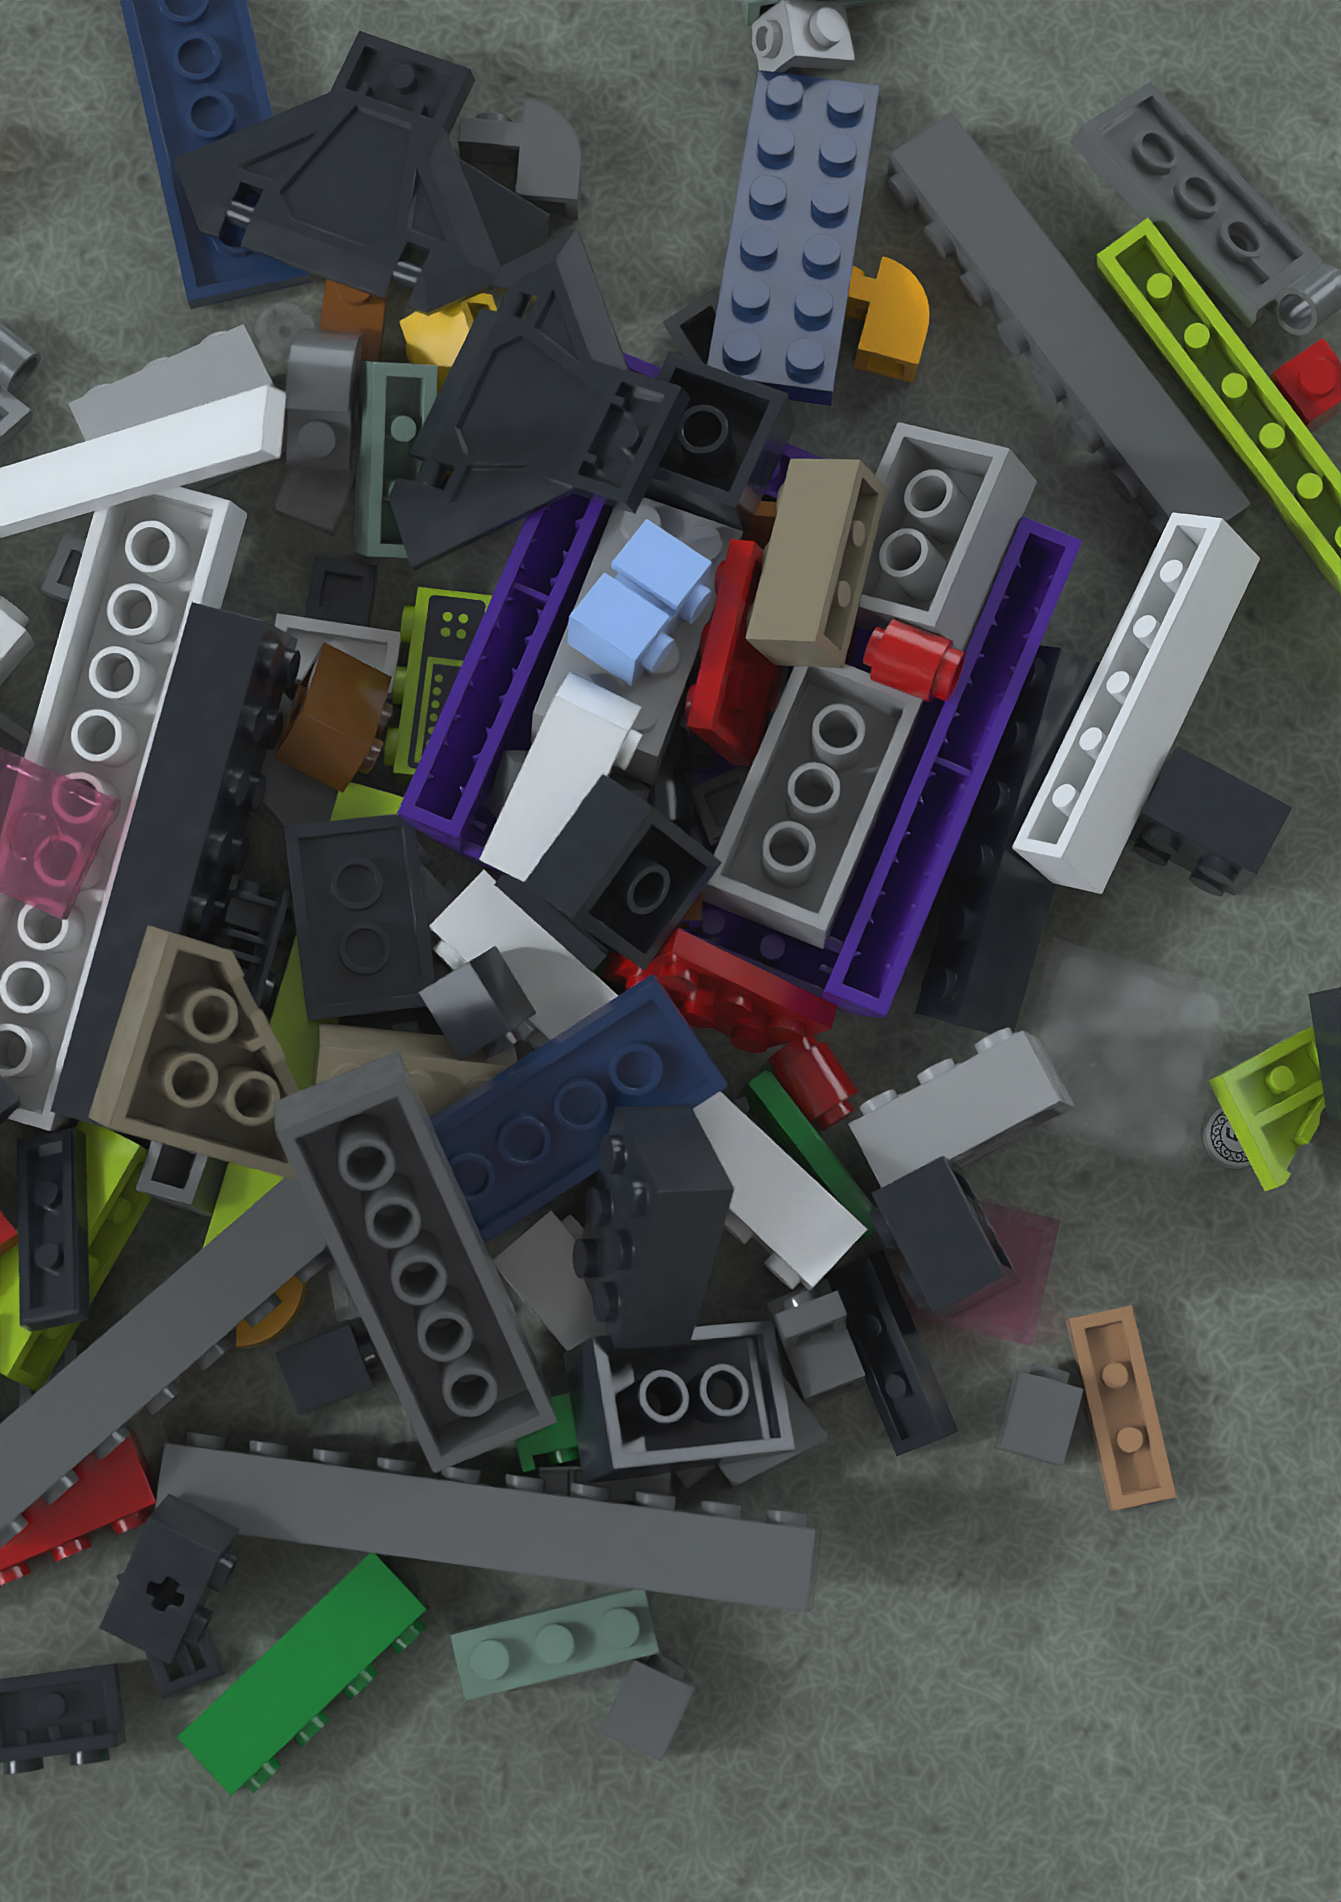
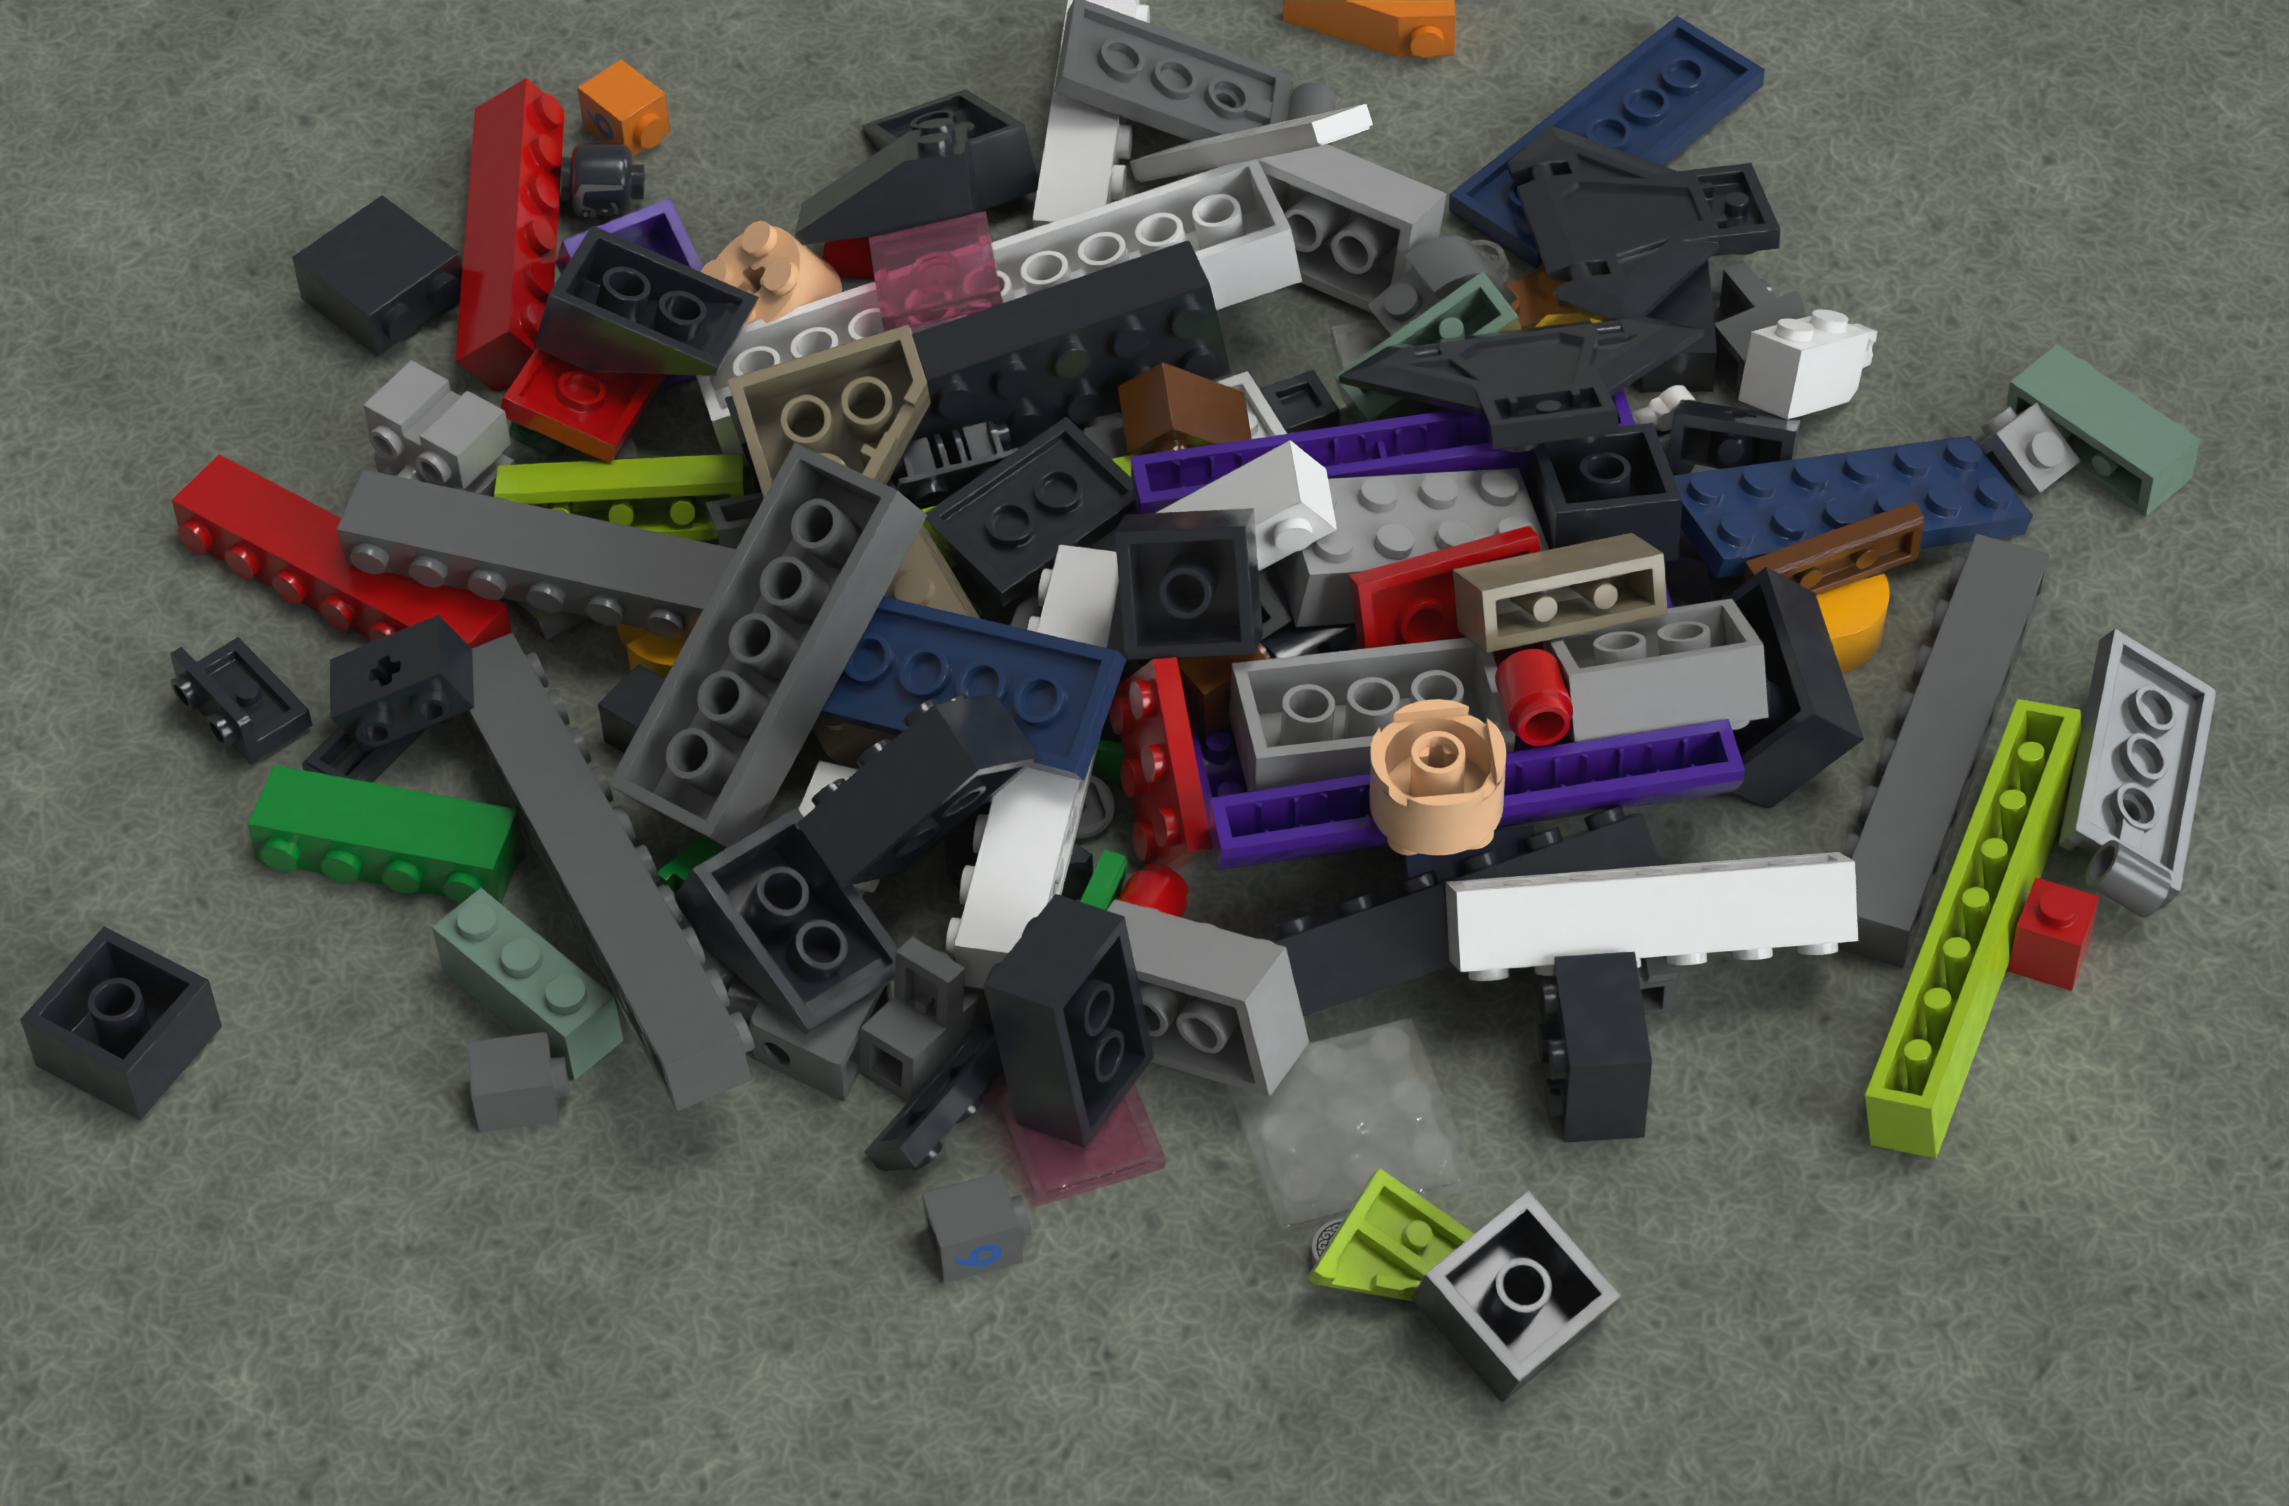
camera: 65 degrees right, 30 degrees down
(53, 1230) = (633, 464): black tile -> none
(479, 1005) = (1019, 587): black brick -> none
(613, 150) = (1805, 364): none -> white hinge
(629, 617) = (1445, 506): light blue piece -> none
(656, 269) = (1728, 437): none -> black brick
(864, 294) = (1848, 551): none -> reddish brown tile
(942, 396) = (1806, 693): none -> black brick
(1002, 804) = (1437, 779): none -> light nougat brick
(1121, 1408) = (1029, 1290): medium nougat plate -> none

